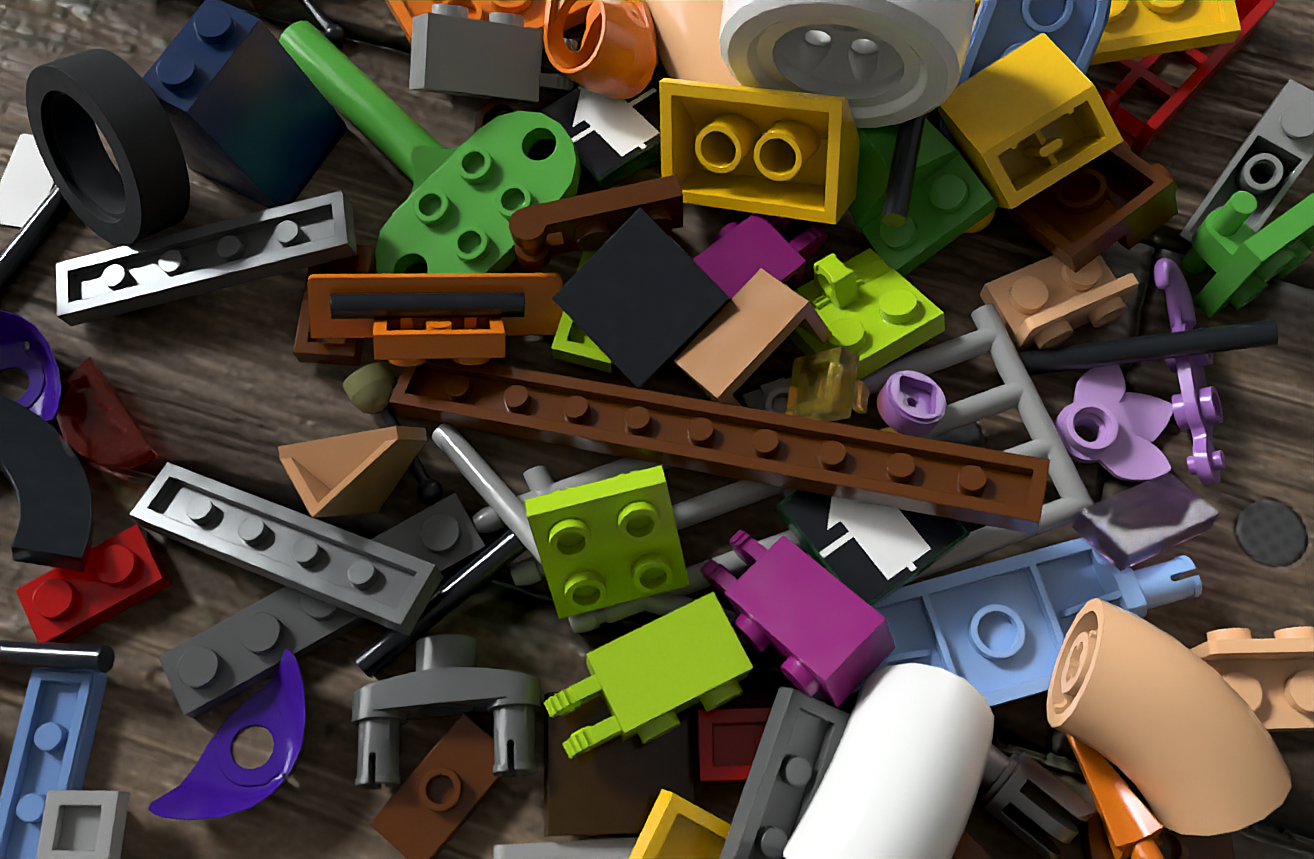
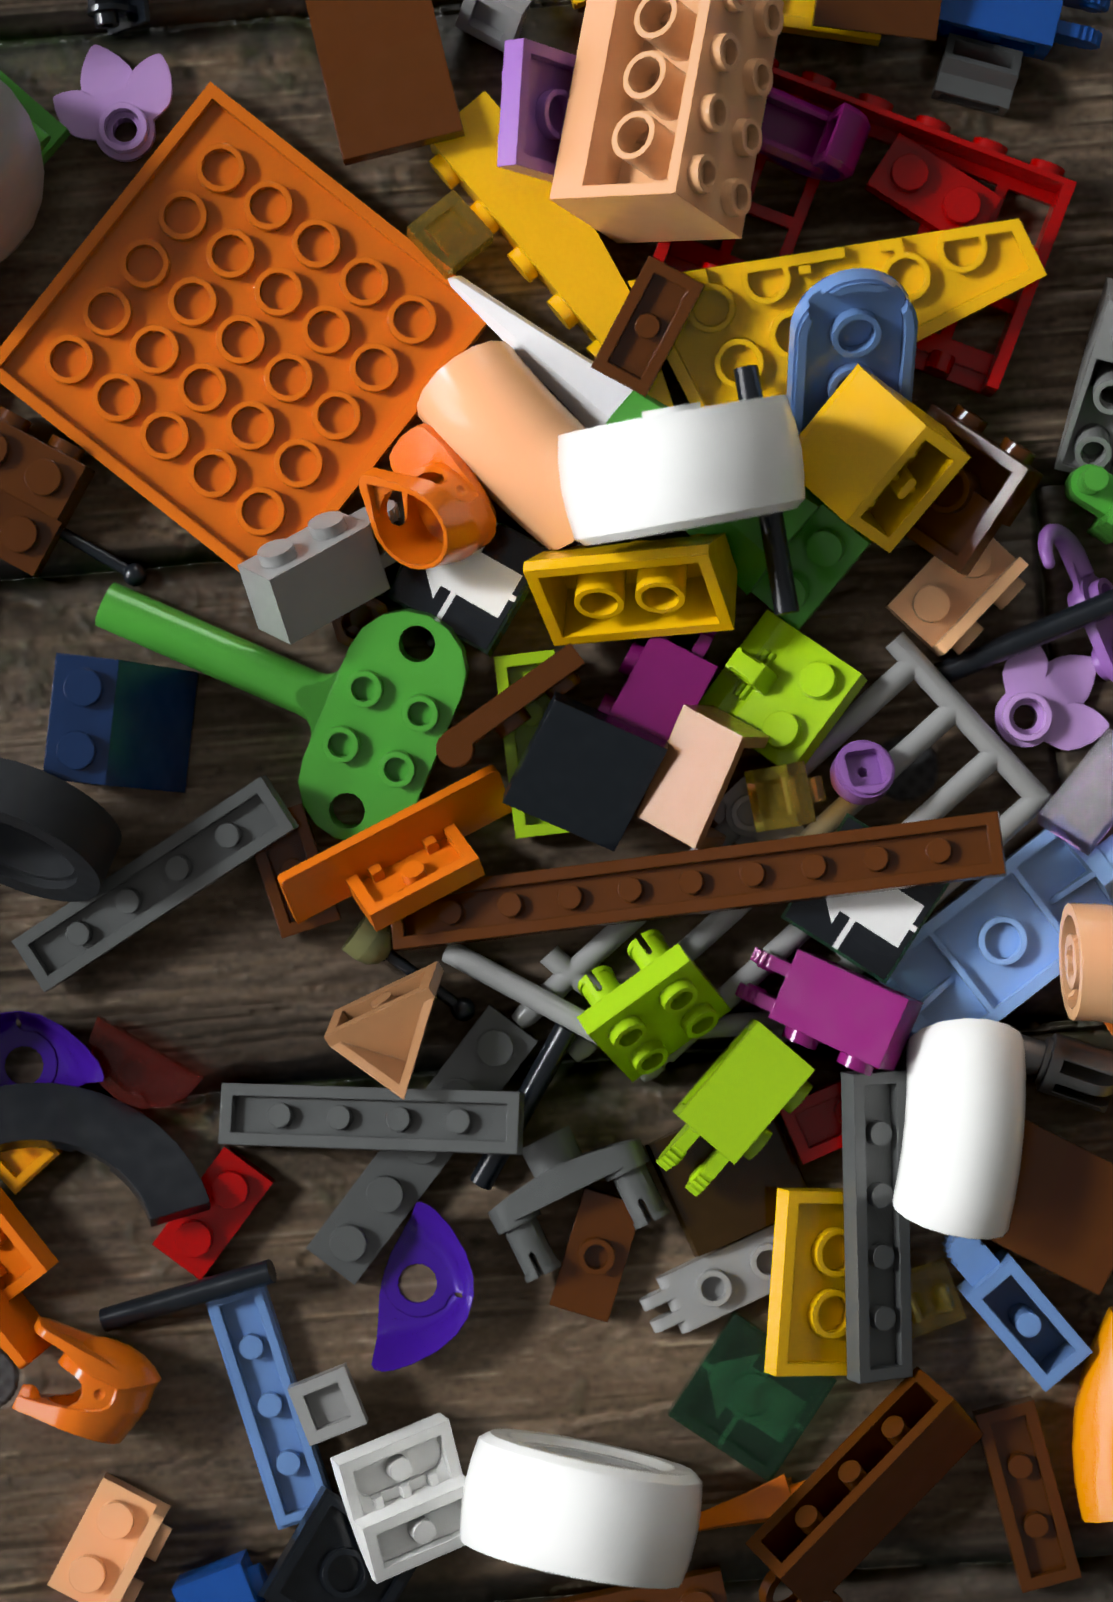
camera: 25 degrees left, 20 degrees up
(426, 305) = (393, 854): black bar -> none

